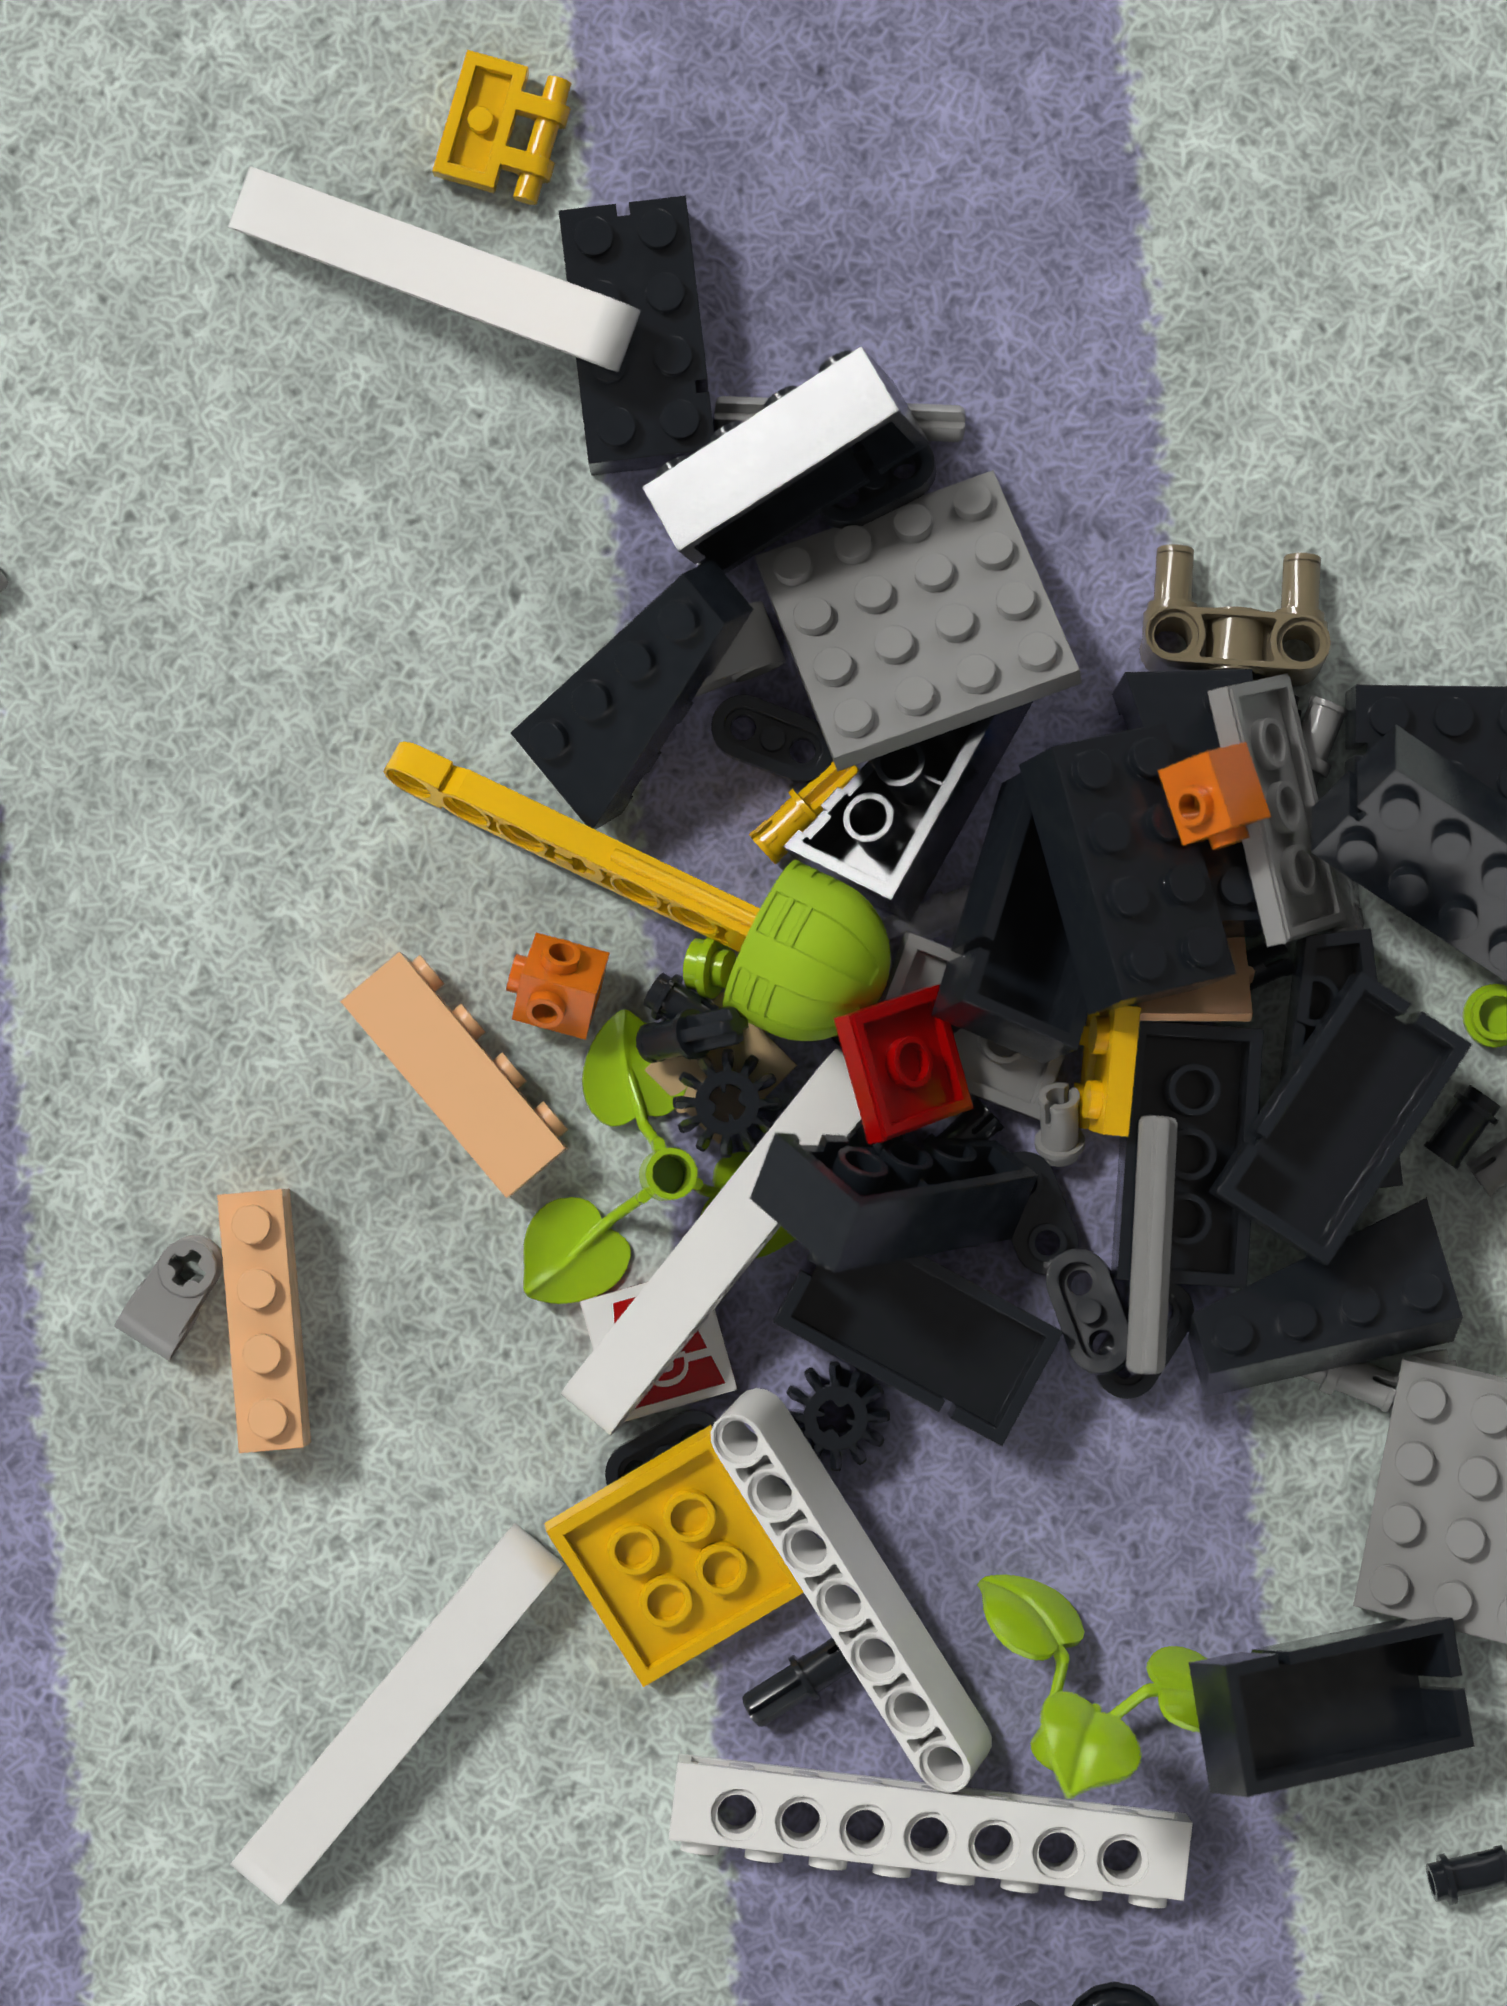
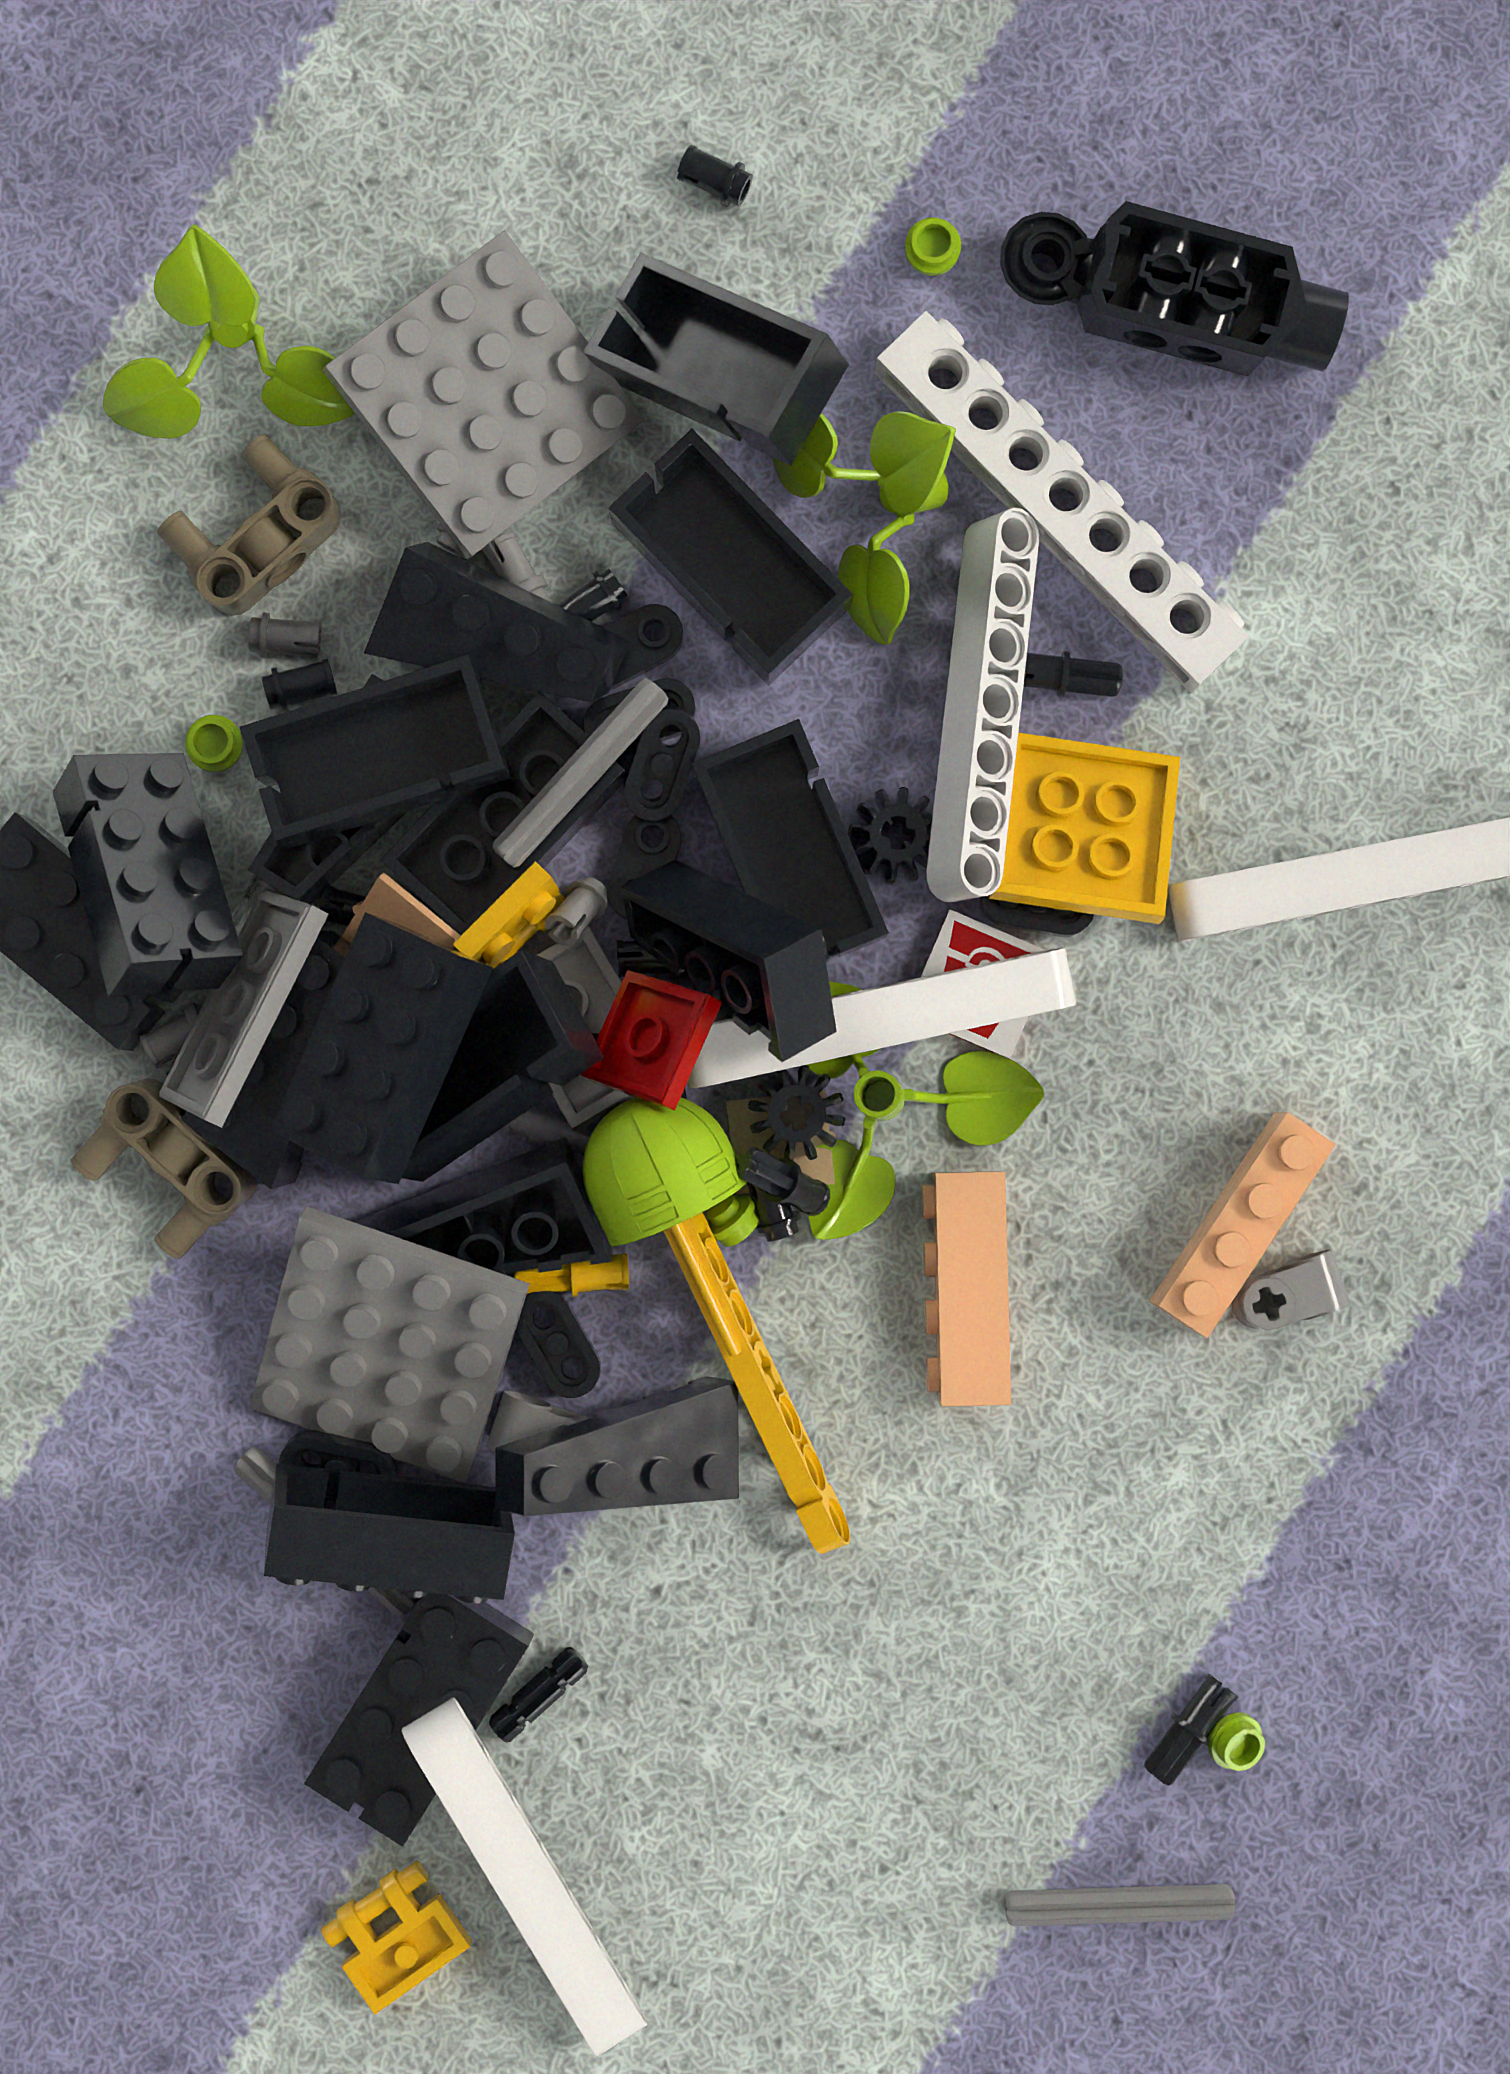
camera: 140 degrees left, 0 degrees up
(545, 427) = (538, 1694): none -> black axle
(557, 985) = (848, 1292): orange brick -> none
(1177, 1542) = (730, 557): none -> black piece
(1186, 1397) = (642, 653): none -> black plate
(1215, 796) = (276, 1048): orange brick -> none
(1226, 1968) = (932, 246): none -> lime plate
(1268, 1412) = (596, 597): none -> black pin

